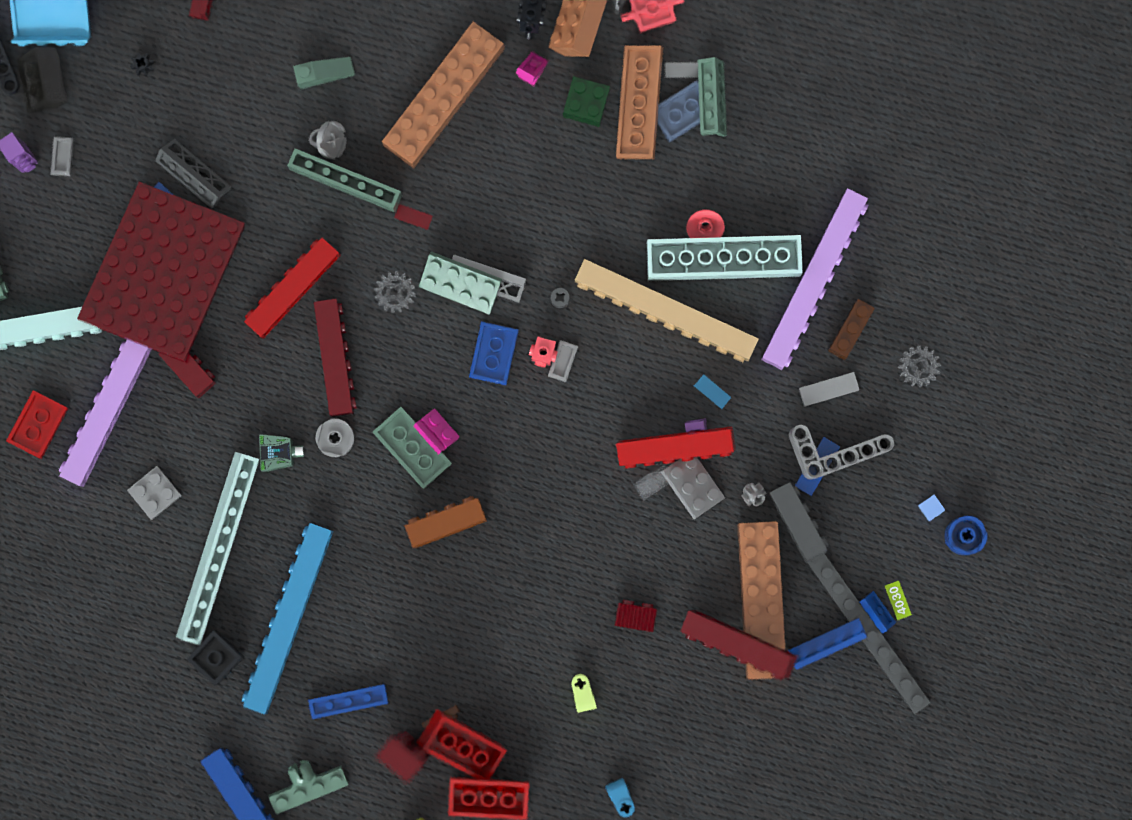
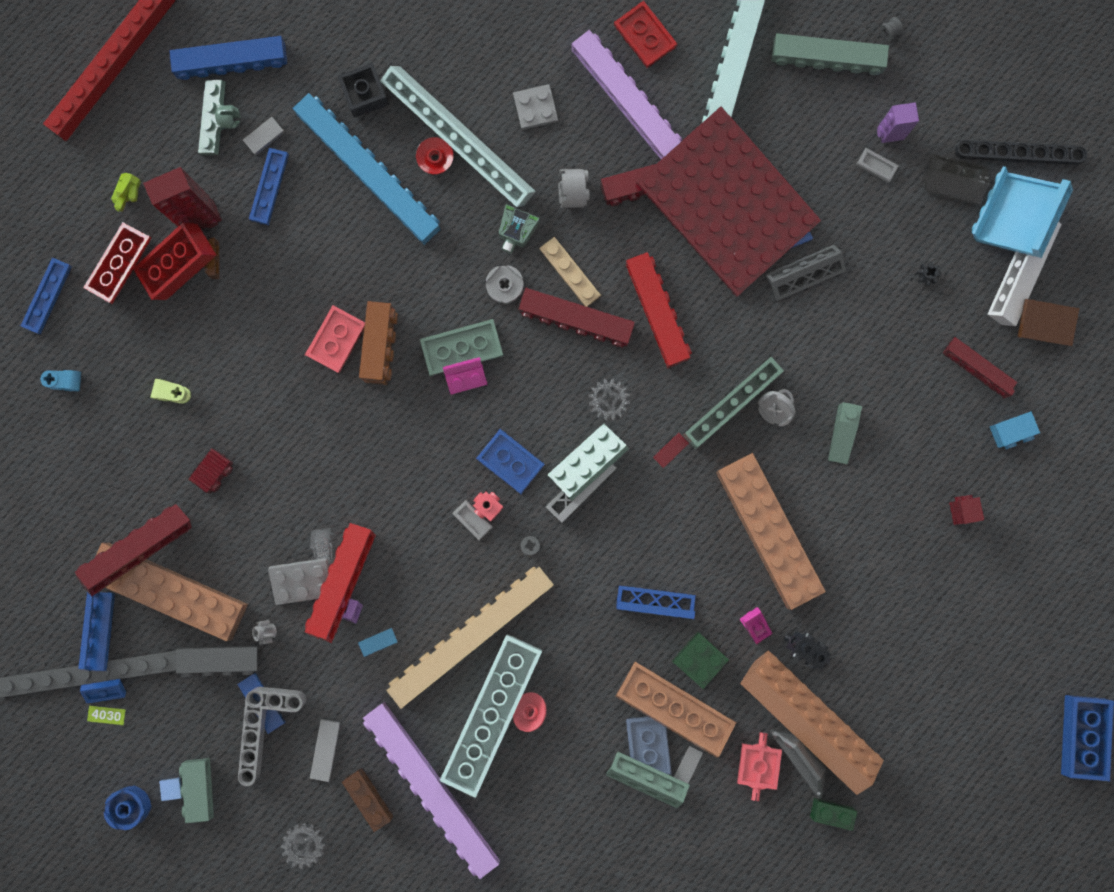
camera: 120 degrees right, 0 degrees up
(216, 417) = (573, 188): none -> light grey brick
(238, 568) = (432, 147): none -> red dish
(294, 384) = (570, 272): none -> tan plate
(302, 732) = (263, 136): none -> light grey tile
(460, 566) = (335, 339): none -> coral plate
(560, 158) = (668, 611): none -> blue fence
(920, 483) = (196, 790): none -> sand green brick

